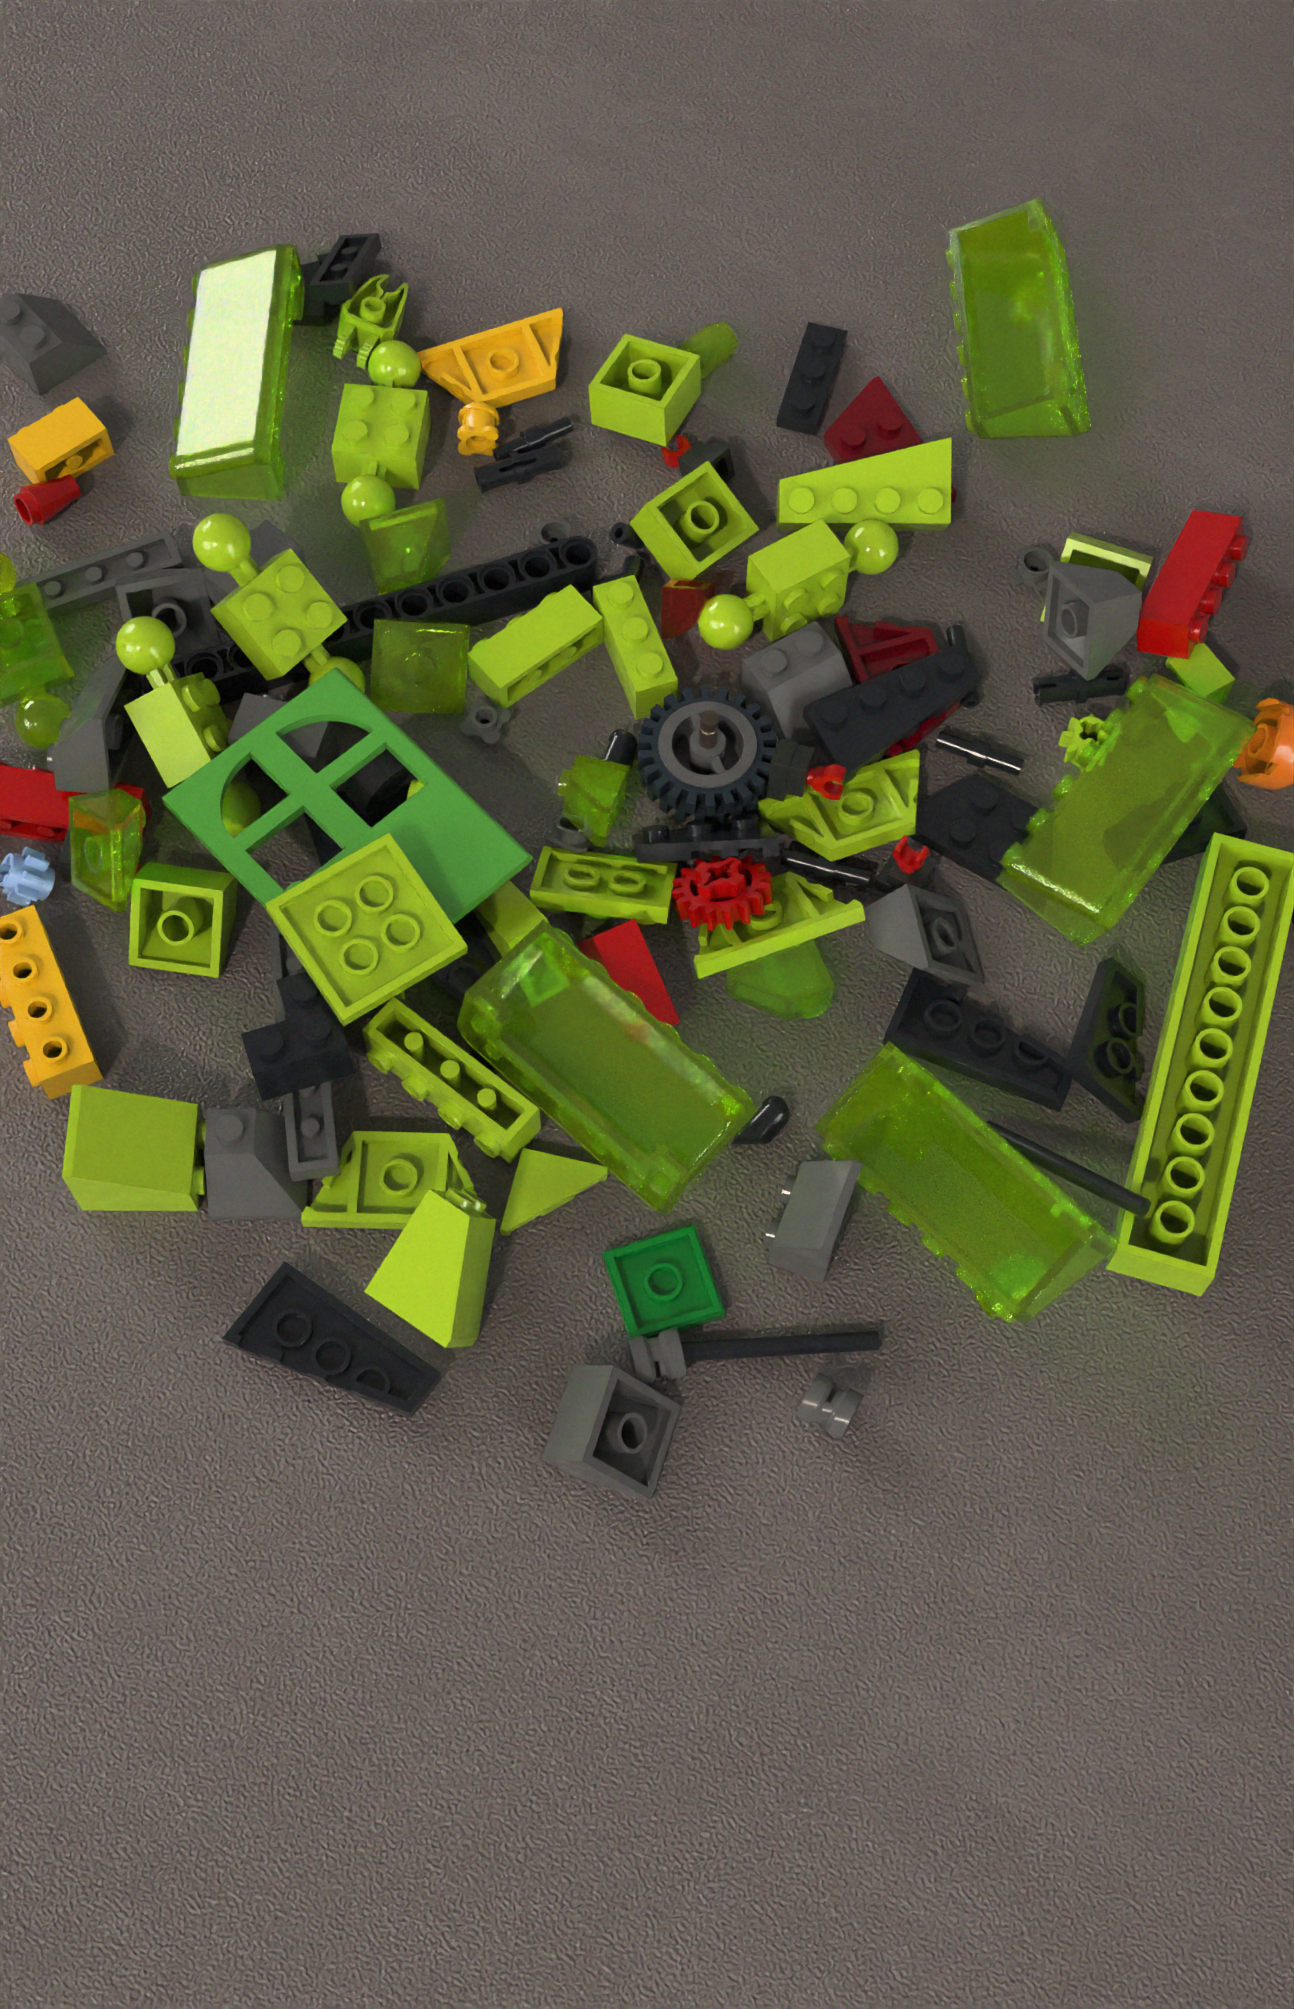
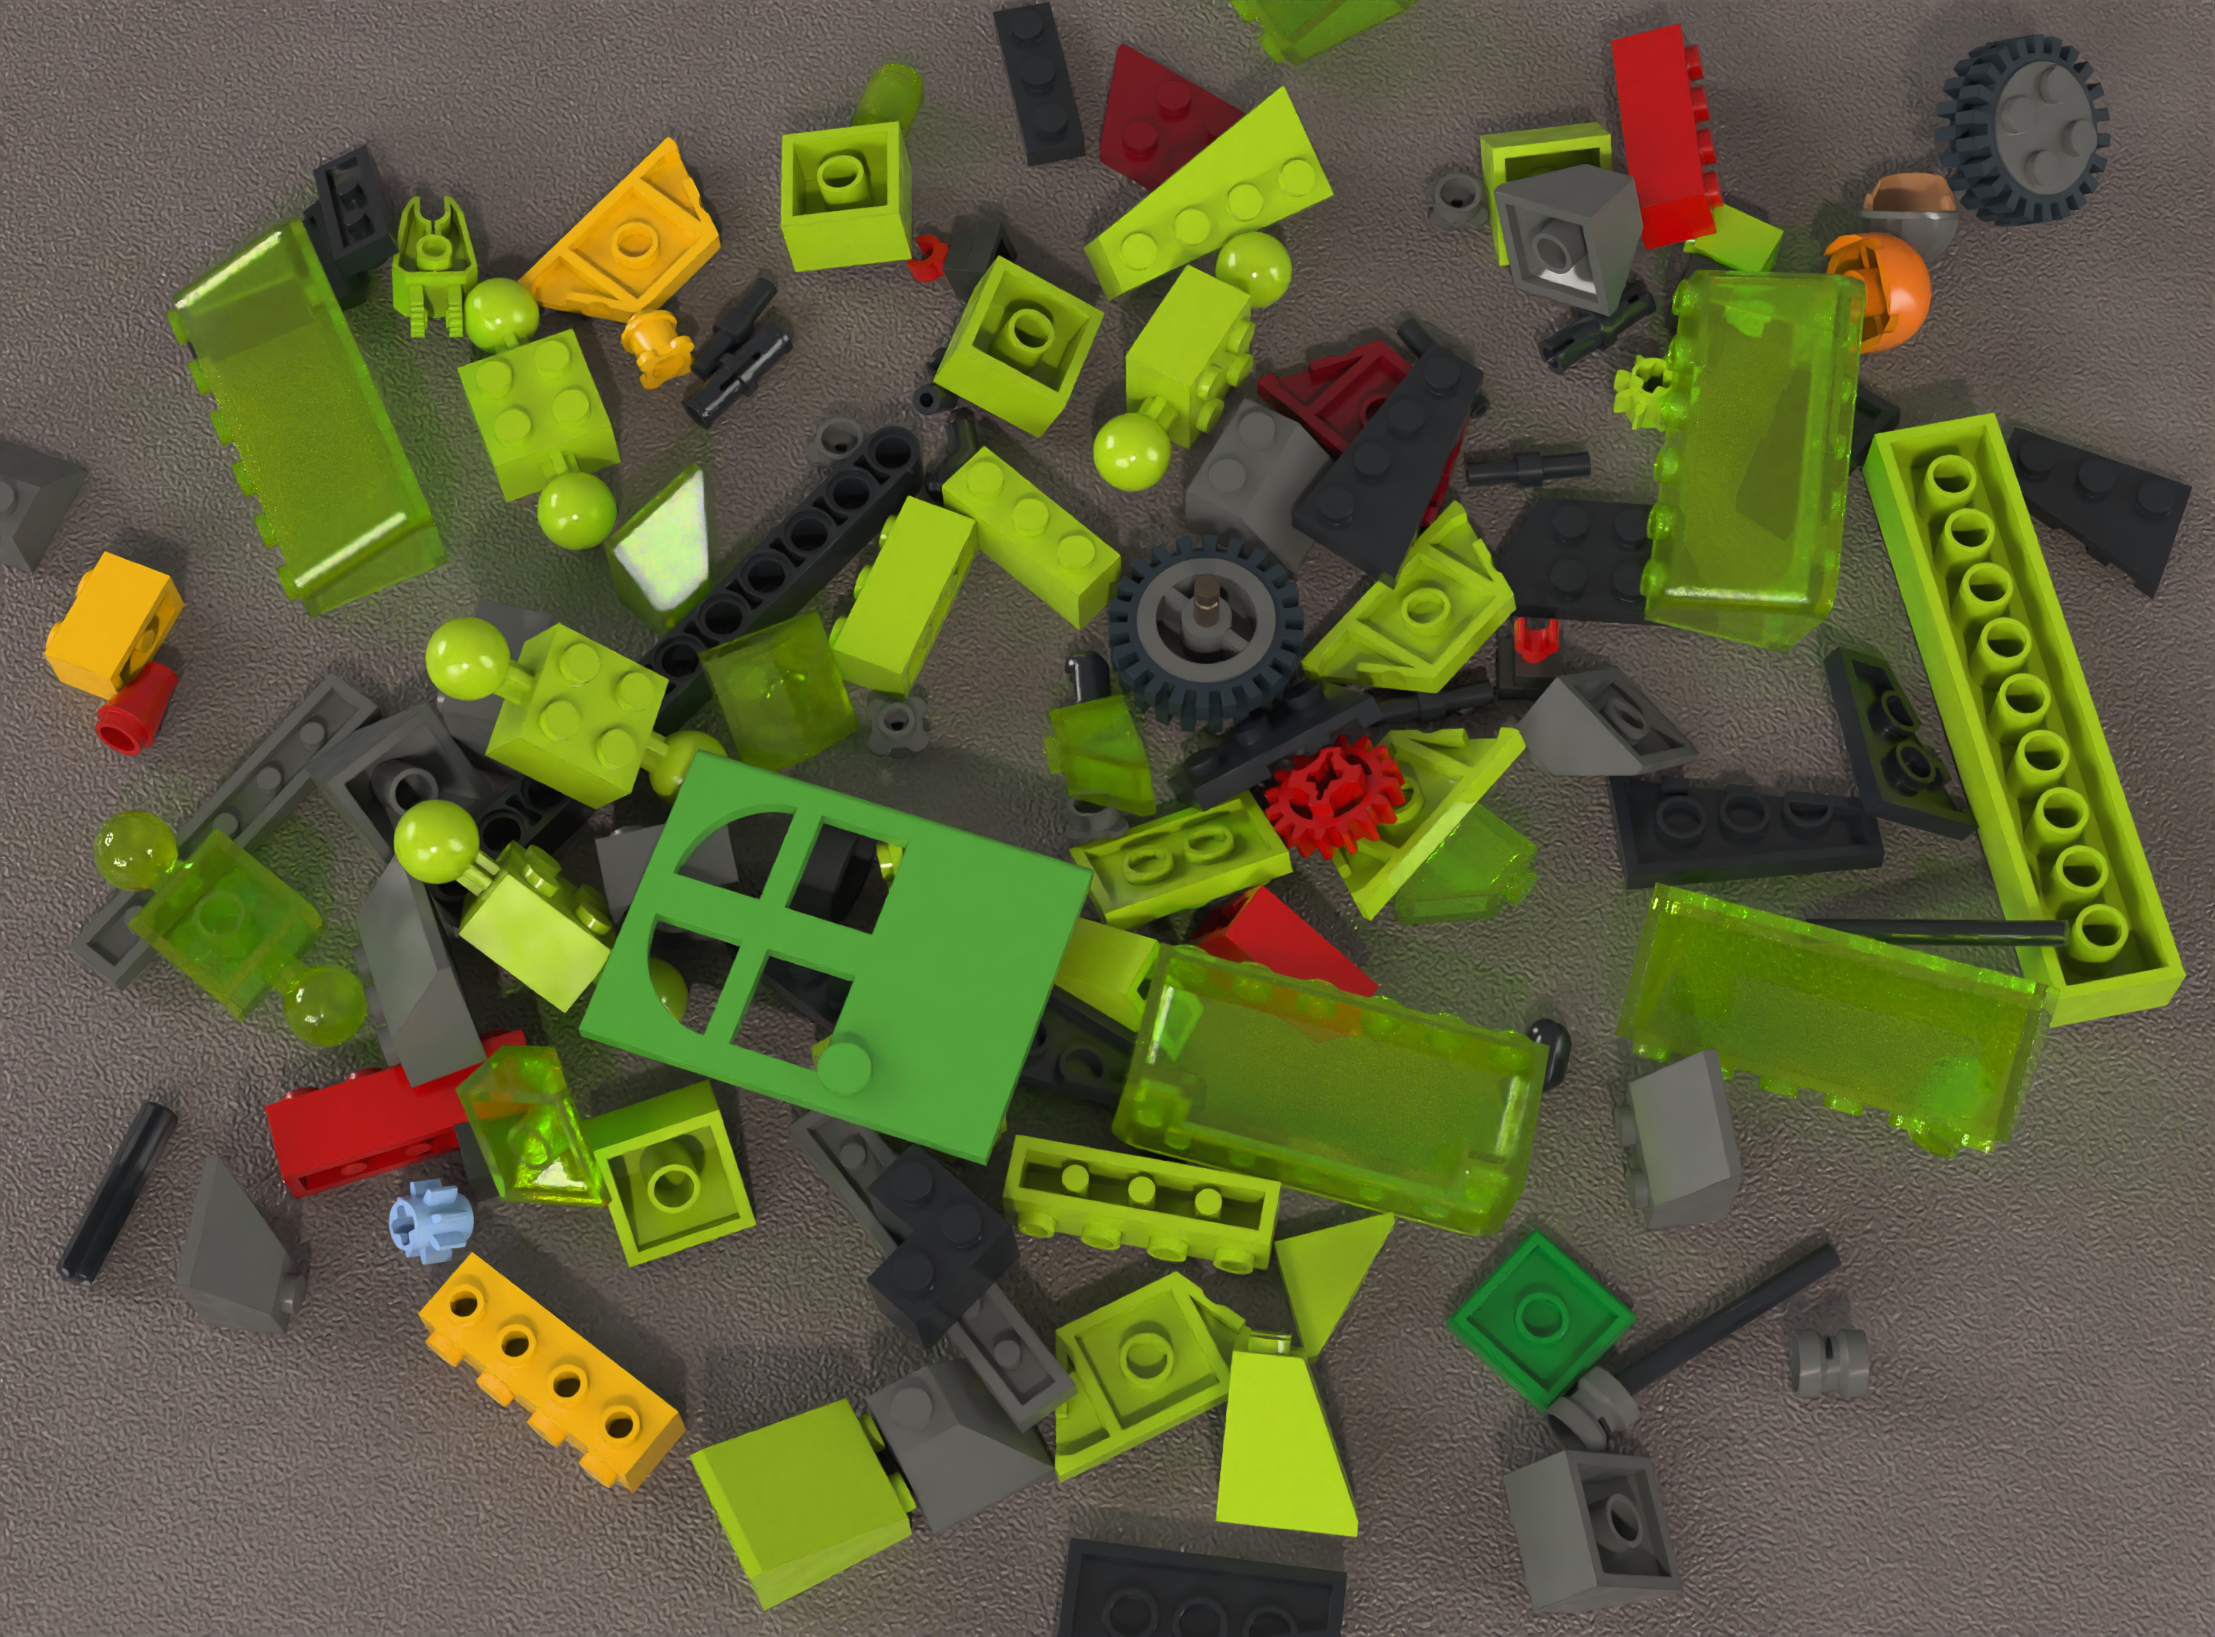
camera: 25 degrees left, 0 degrees up
(366, 928) = (955, 1066): lime plate -> none
(683, 605) = (1068, 454): clear red brick -> none
(793, 770) = (1331, 602): pearl dark grey piece -> none

